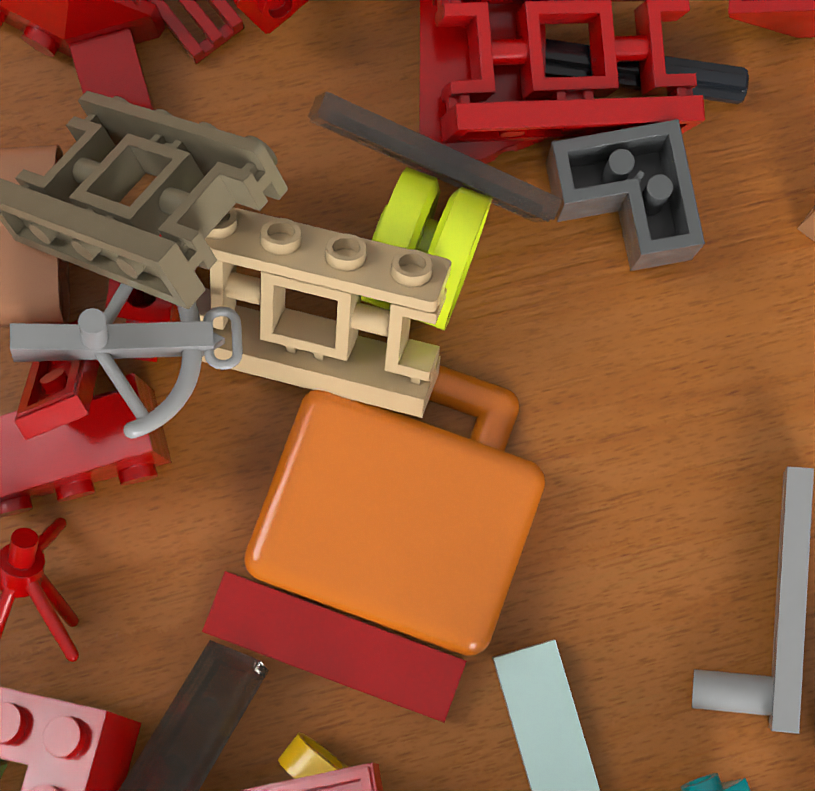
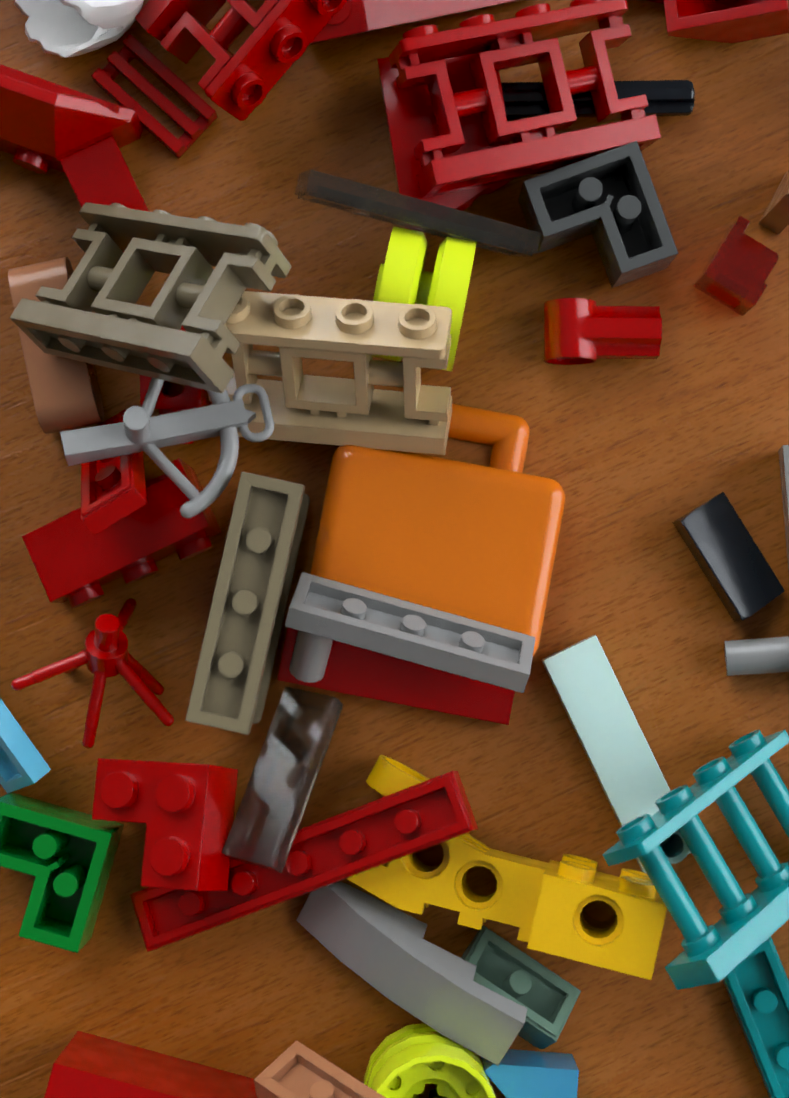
camera: 10 degrees left, 5 degrees up
(182, 543) = (249, 603): none -> dark tan fence
(346, 599) = (401, 629): none -> light grey piece
(593, 312) = (582, 332): none -> red piece
(713, 579) = (729, 557): none -> black slope
(767, 273) = (737, 269): none -> clear red panel

